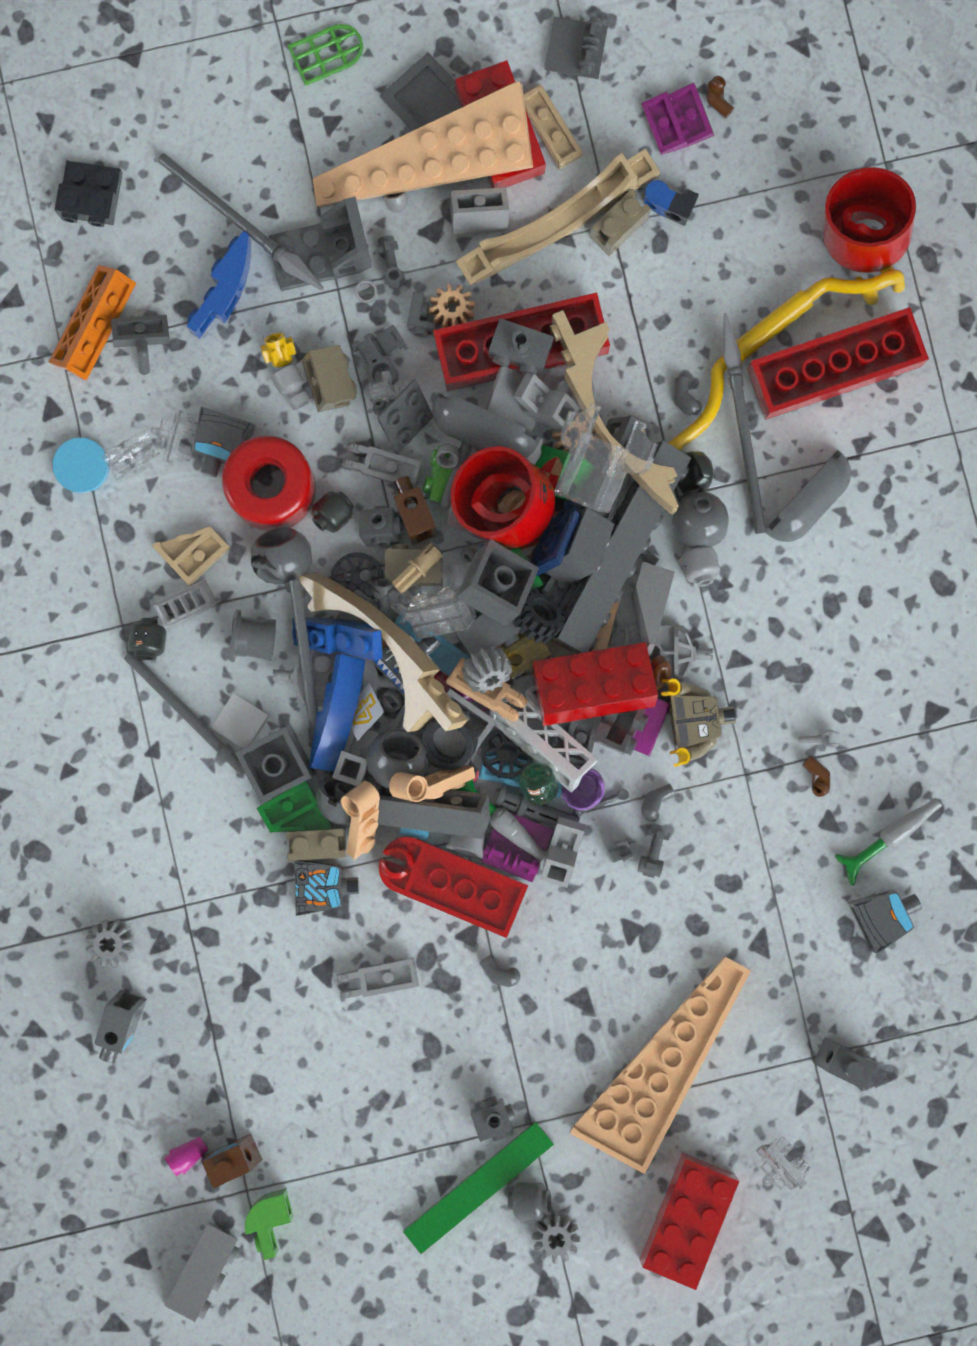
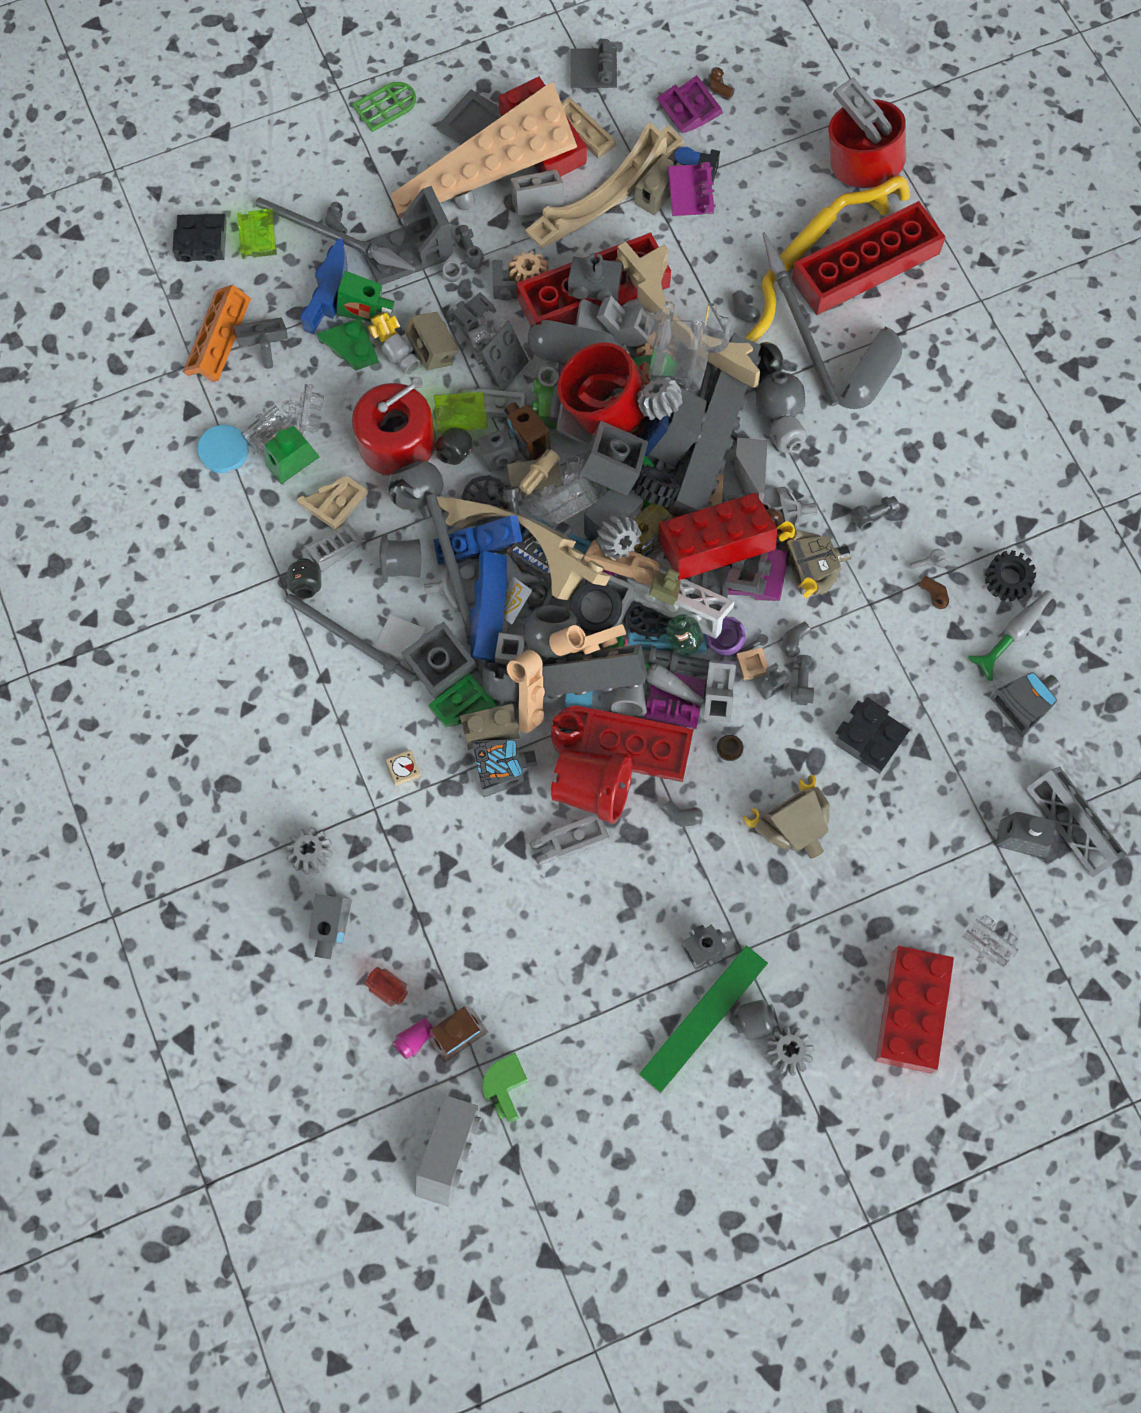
camera: 10 degrees left, 15 degrees down
(152, 489) = (288, 454): none -> green torso
(153, 201) = (257, 233): none -> clear neon green plate
(167, 1099) = (386, 986): none -> clear red brick
(217, 437) = (339, 403): dark grey torso -> none
(220, 869) = (403, 767): none -> tile
(239, 360) = (350, 343): none -> green wing
(243, 197) = (334, 217): none -> dark grey arm
(251, 304) = (361, 298): none -> green torso
(300, 444) = (416, 383): none -> light grey hinge
(346, 472) = (460, 410): none -> clear neon green plate
(411, 930) = (593, 782): none -> red piece
(526, 733) = (665, 586): none -> olive tile
(559, 528) = (659, 398): none -> light grey gear
(563, 909) = (730, 747): none -> dark brown plate
(605, 823) = (752, 664): none -> light nougat plate
(615, 1005) = (796, 821): none -> dark tan torso
(645, 1096) = (846, 901): light nougat wing -> none
(655, 240) = (691, 189): none -> magenta hinge
(713, 923) = (871, 734): none -> black plate
(760, 677) = (863, 518): none -> dark grey bar
(870, 183) = (862, 109): none -> light grey hinge
(911, 1054) = (1084, 815): none -> dark grey fence
(919, 773) = (1006, 589): none -> black tyre

